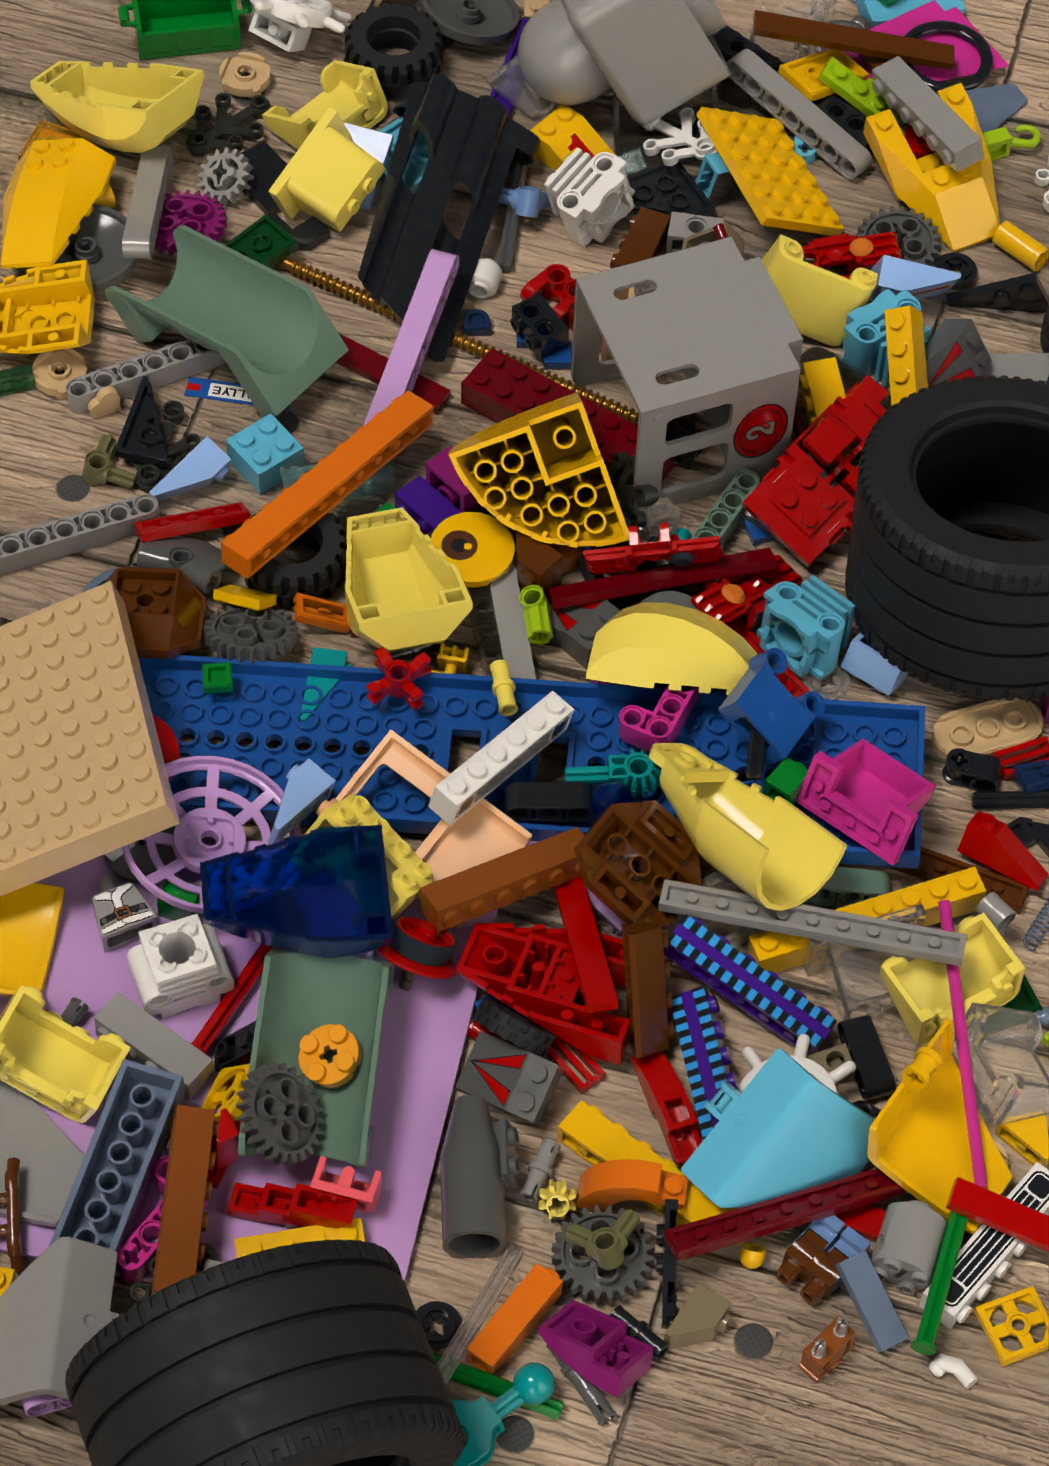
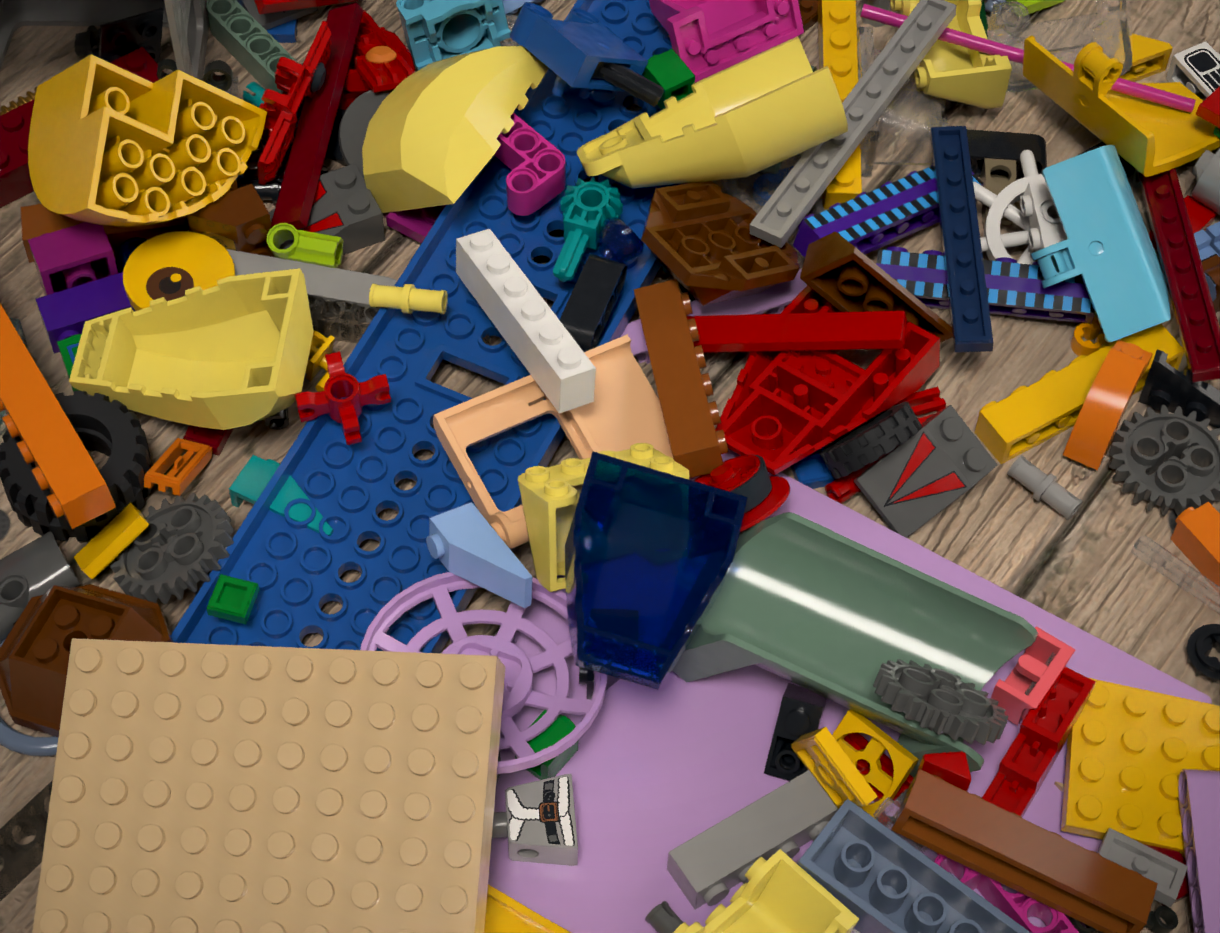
camera: 70 degrees left, 0 degrees up
(179, 967) = (657, 796): white piece -> none
(203, 1063) = (833, 768): none -> yellow piece
(231, 1001) = (719, 736): red axle -> none
(344, 1063) = (844, 643): light orange plate -> none
(473, 1173) = (1041, 543): dark grey piece -> none
(550, 1203) = (1092, 479): light yellow gear -> none
(605, 1243) = (1177, 449): olive axle -> none
(670, 1105) = (1022, 334): red slope -> none
(736, 1035) = (961, 240): none -> dark blue tile

